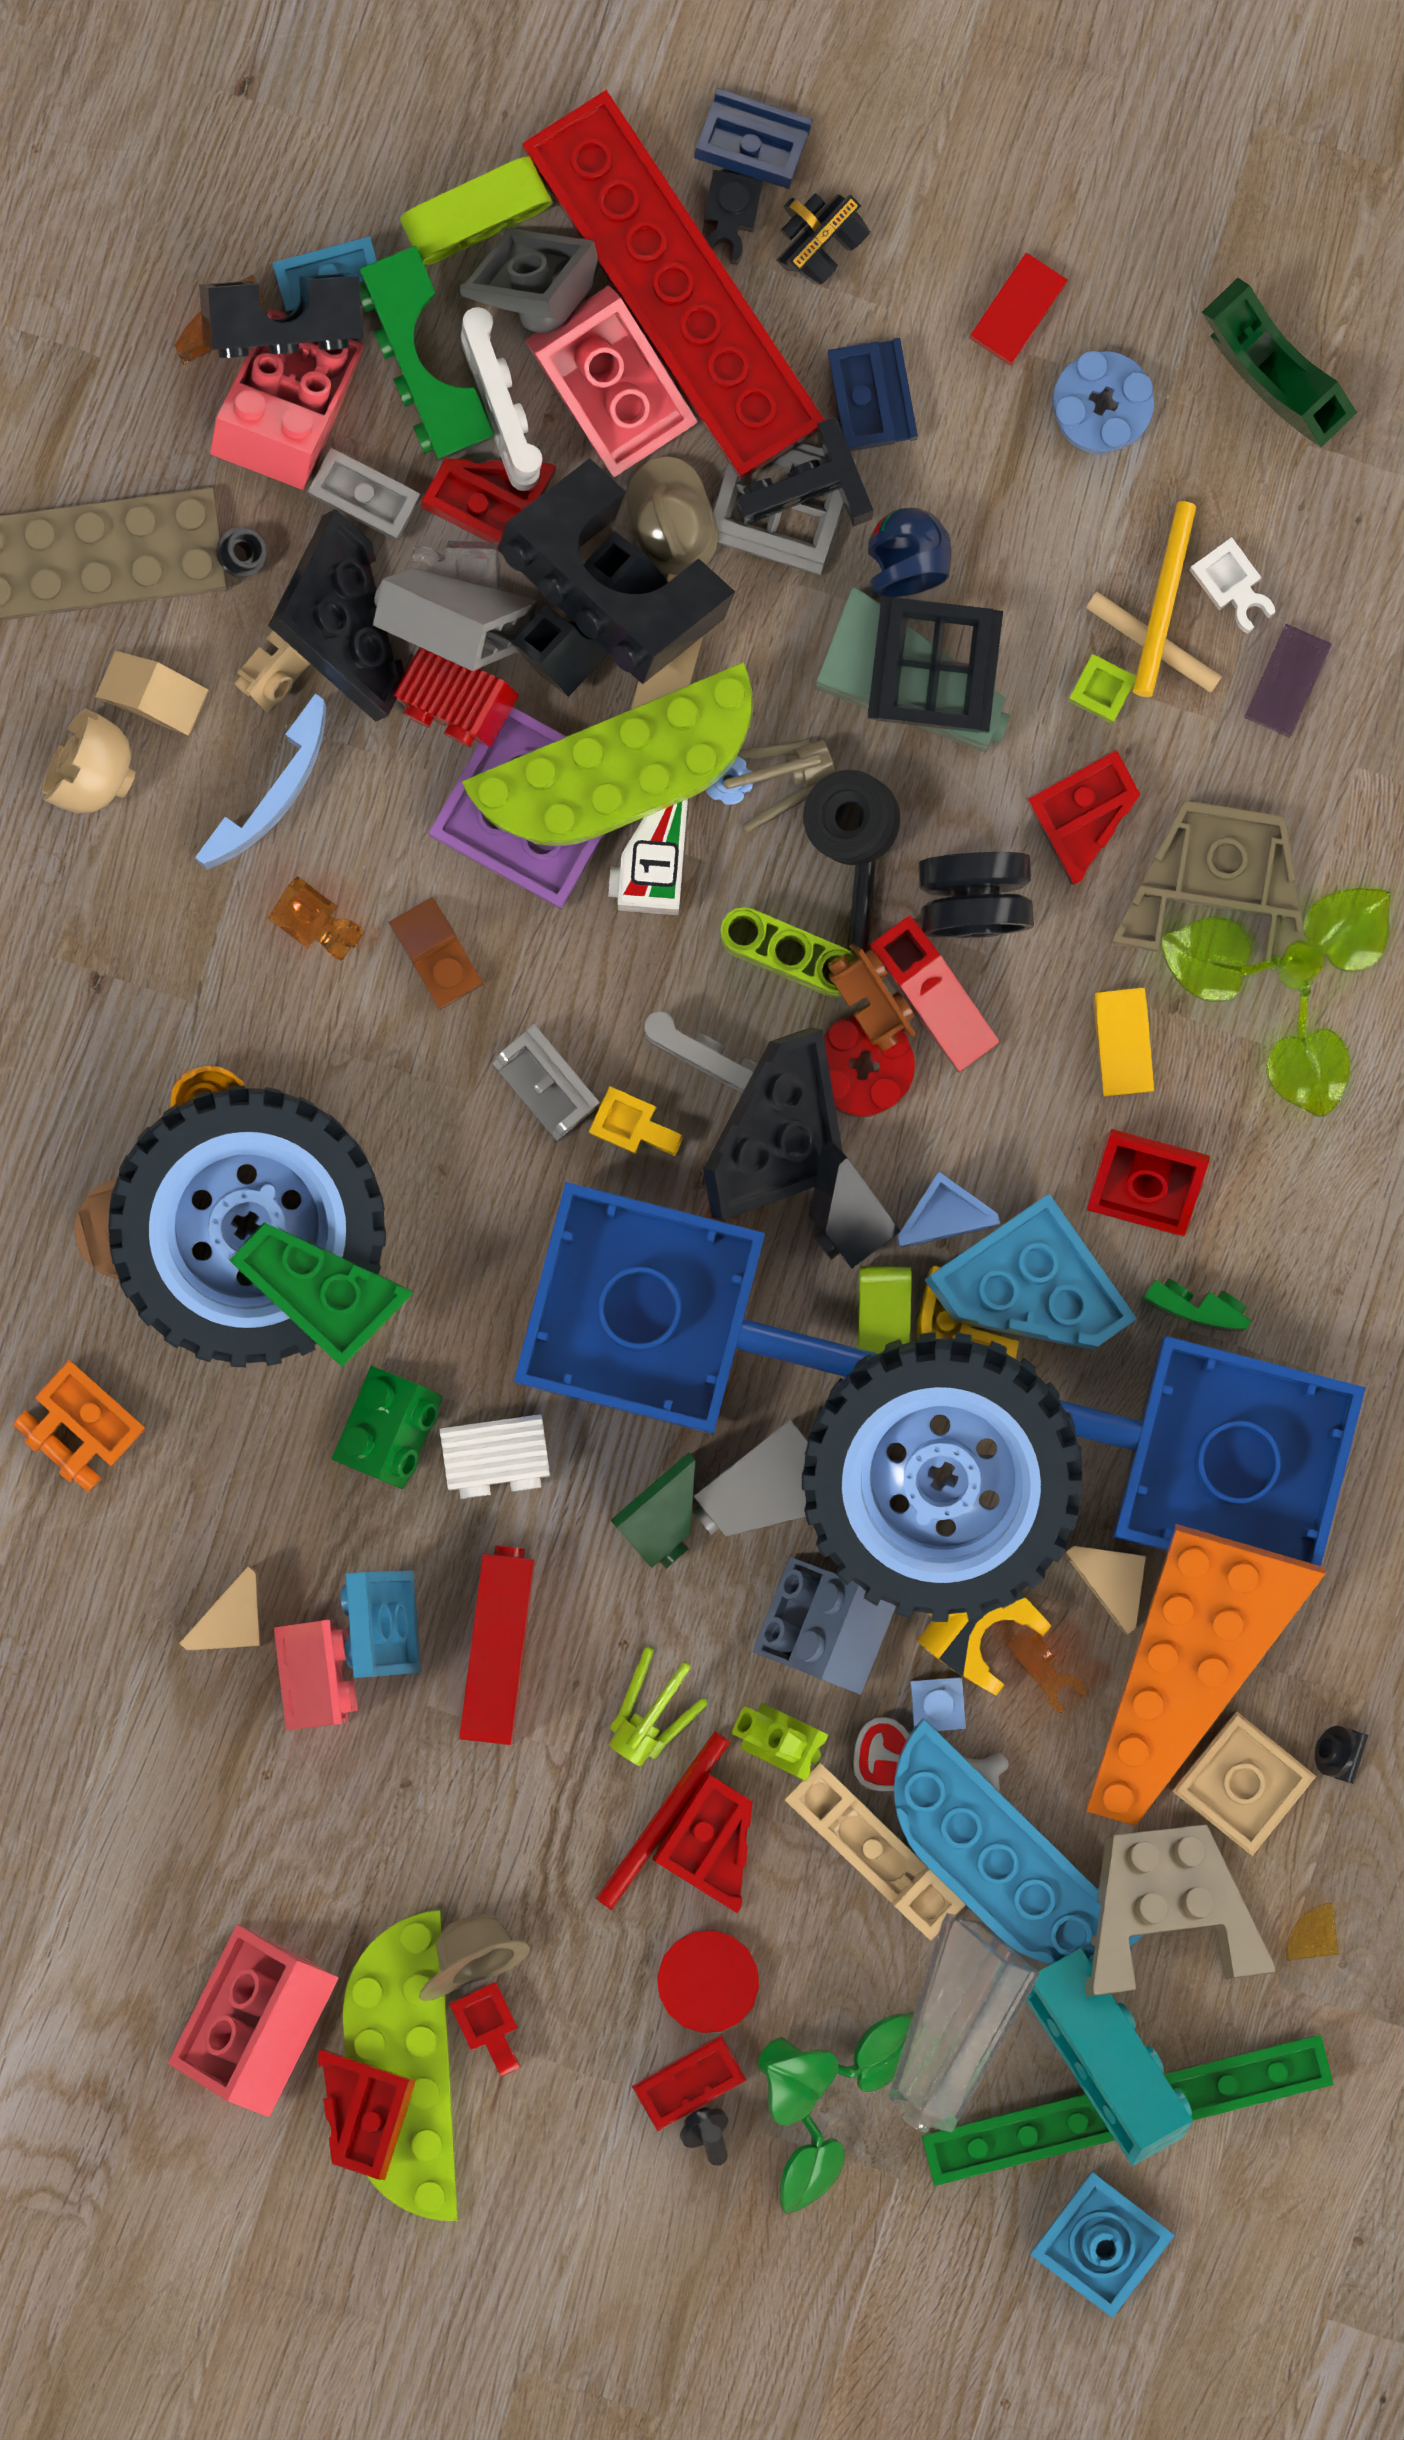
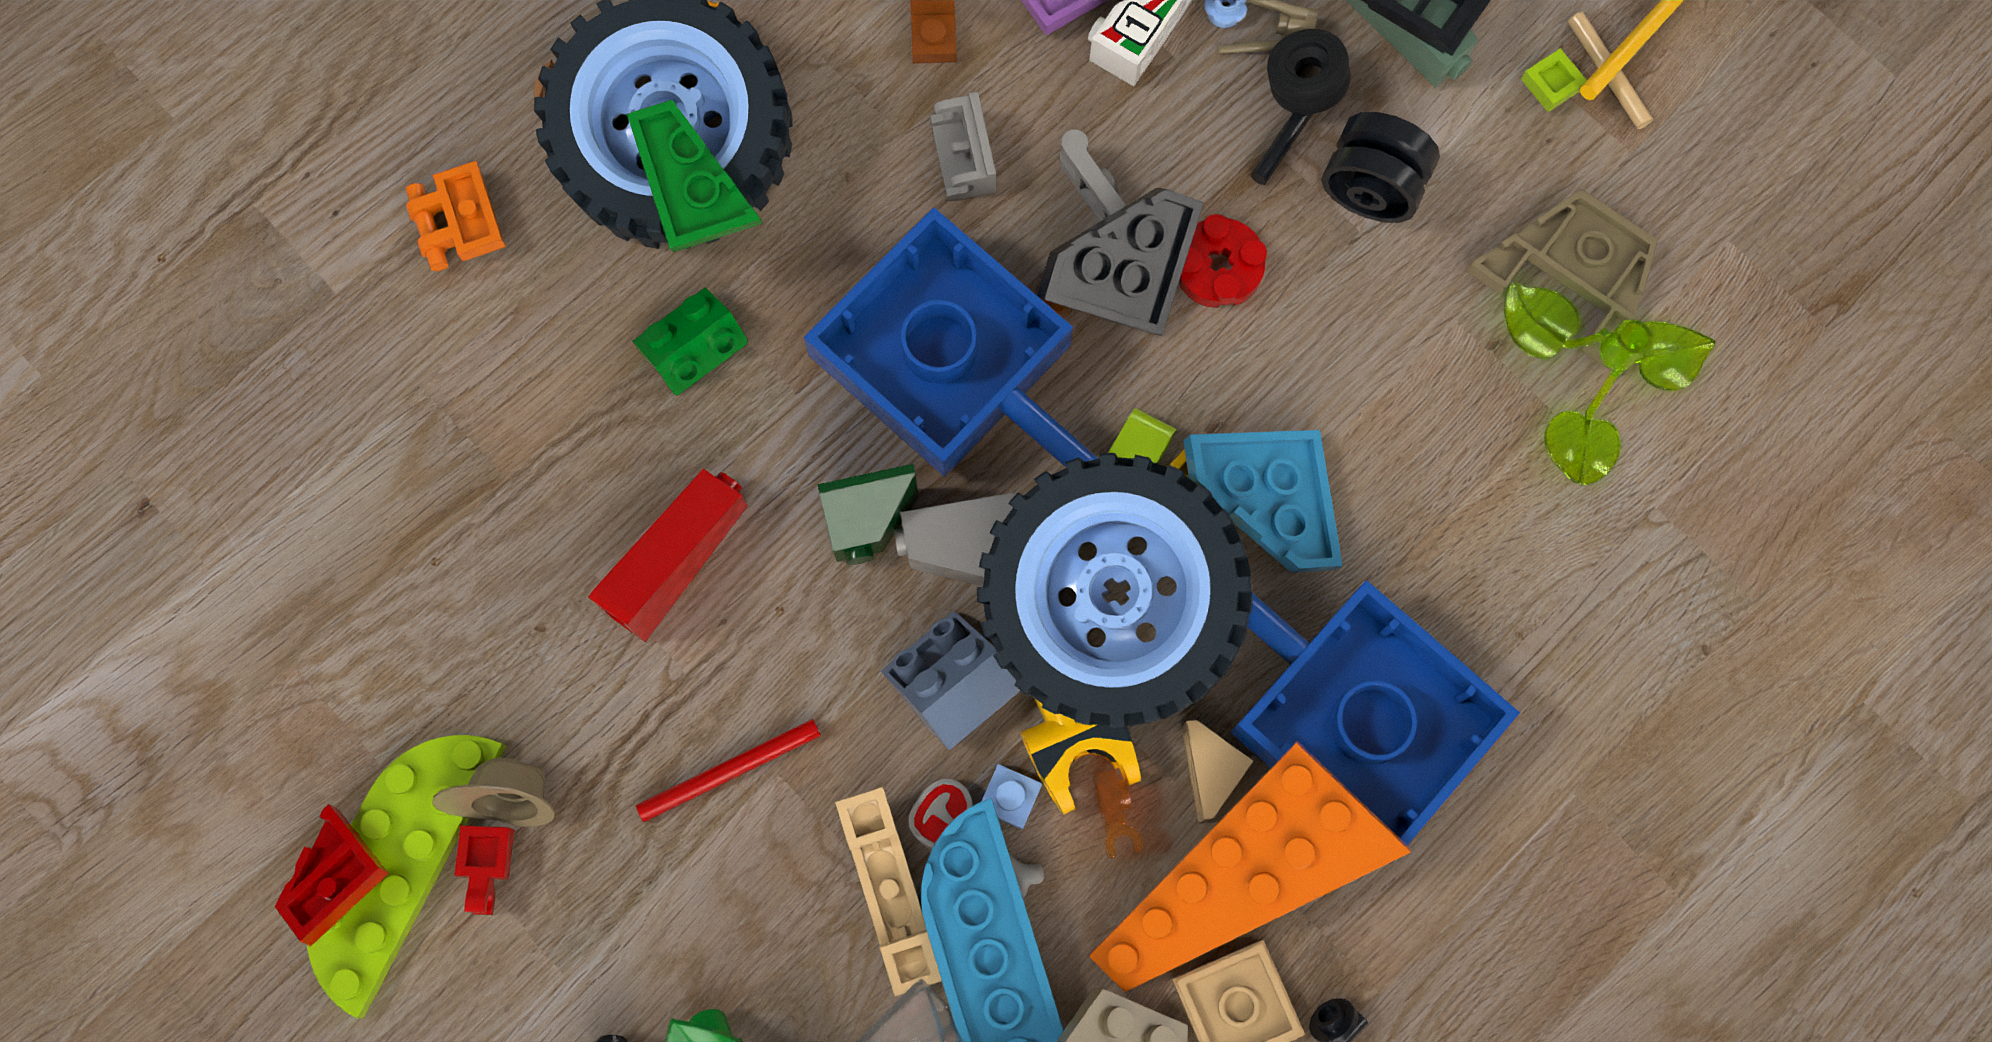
camera: 30 degrees right, 10 degrees down
(233, 1618) = (480, 418): tan slope -> none
(252, 2021) = (293, 754): coral slope -> none
(313, 1674) = (516, 493): coral slope -> none
(381, 1623) = (585, 474): dark azure plate -> none
(495, 1454) = (761, 402): white brick -> none
(628, 1122) = (1011, 209): yellow plate -> none
(636, 1736) = (746, 684): lime plant -> none
(689, 2083) = (621, 1007): red plate -> none
(708, 1981) = (688, 927): red tile -> none
(710, 1842) = (756, 809): red wing -> none
(770, 935) = (1205, 127): lime beam -> none
(779, 1739) = (861, 751): lime hips -> none
(847, 1210) = (1149, 355): black slope -> none
(863, 978) = (1258, 183): dark orange hinge -> none
(934, 993) = (1305, 227): slope -> none
(945, 1213) = (1226, 399): medium blue slope -> none
(1084, 810) = (1494, 159): red wing -> none
(1123, 1042) = (1440, 346): yellow slope -> none
(1147, 1182) = (1408, 459): red slope -> none
(1213, 1312) = (1411, 594): green slope -> none
(1228, 578) = (1697, 51): white plate -> none
(1287, 680) = (1704, 148): clear purple tile -> none

